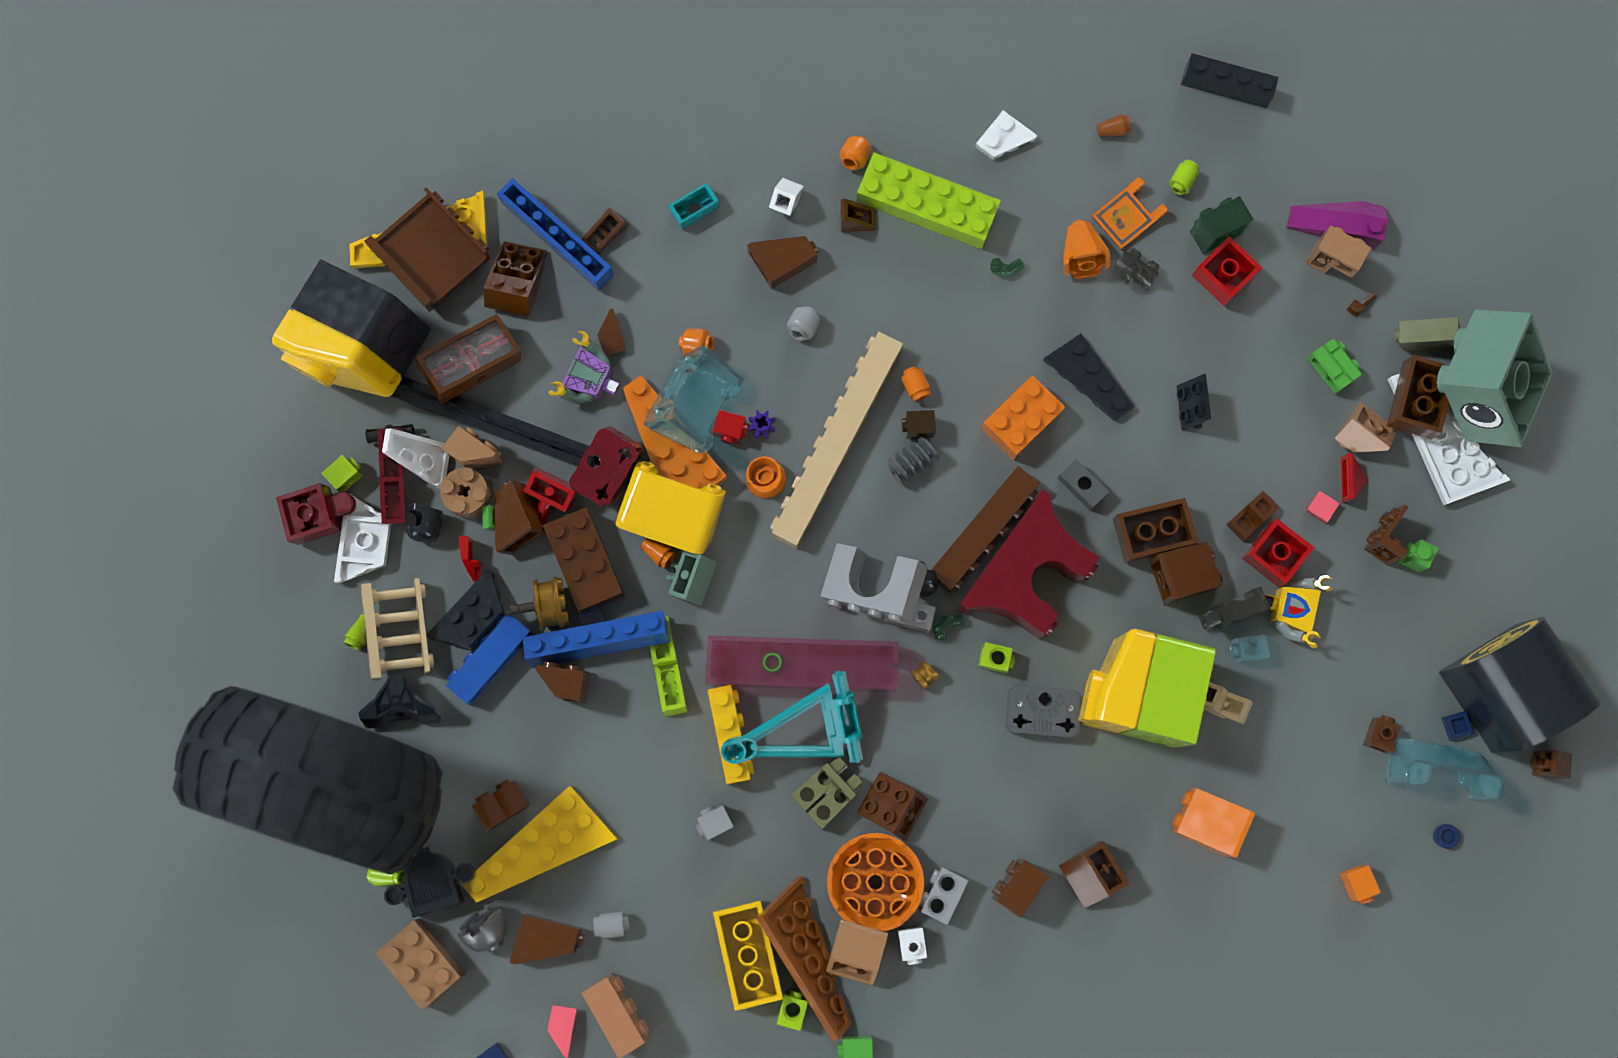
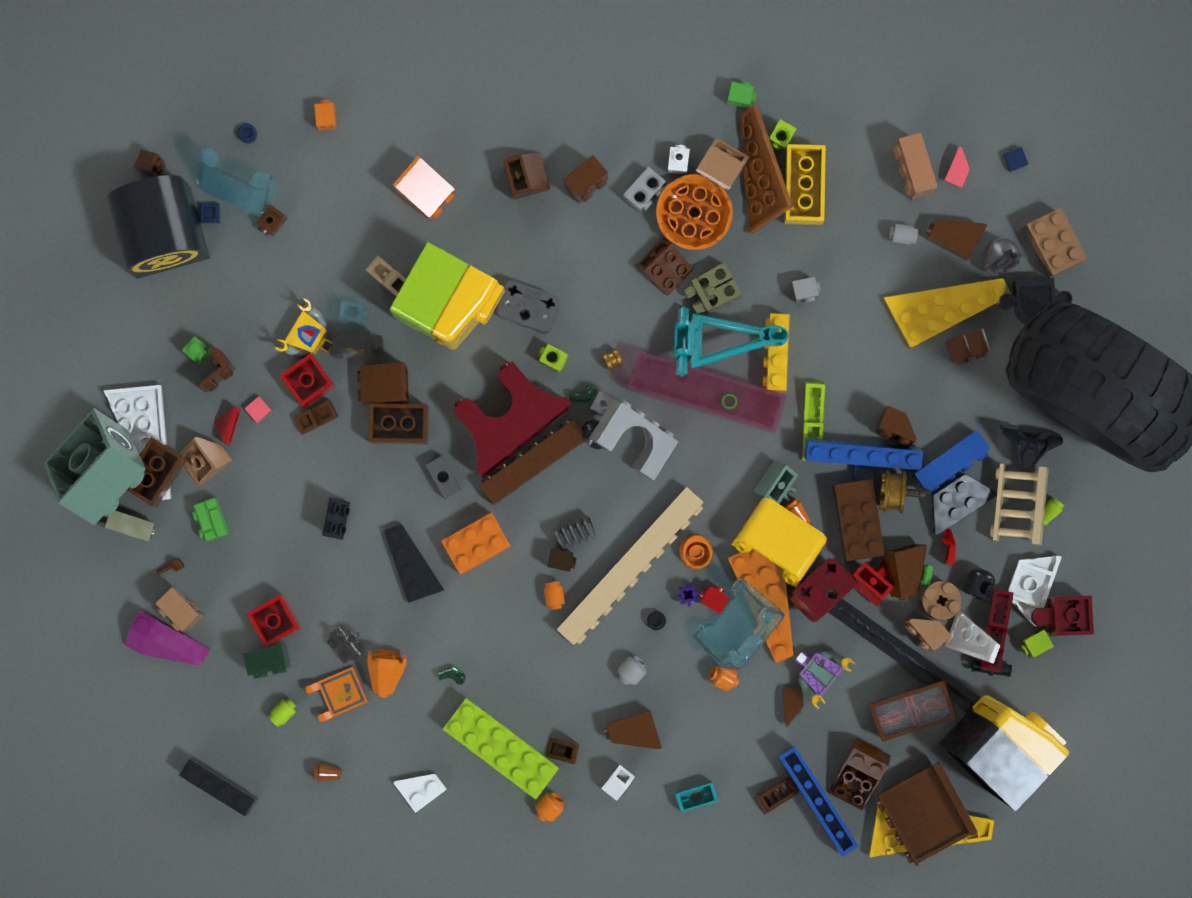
camera: 160 degrees left, 5 degrees up
(790, 387) = (656, 620): none -> black plate

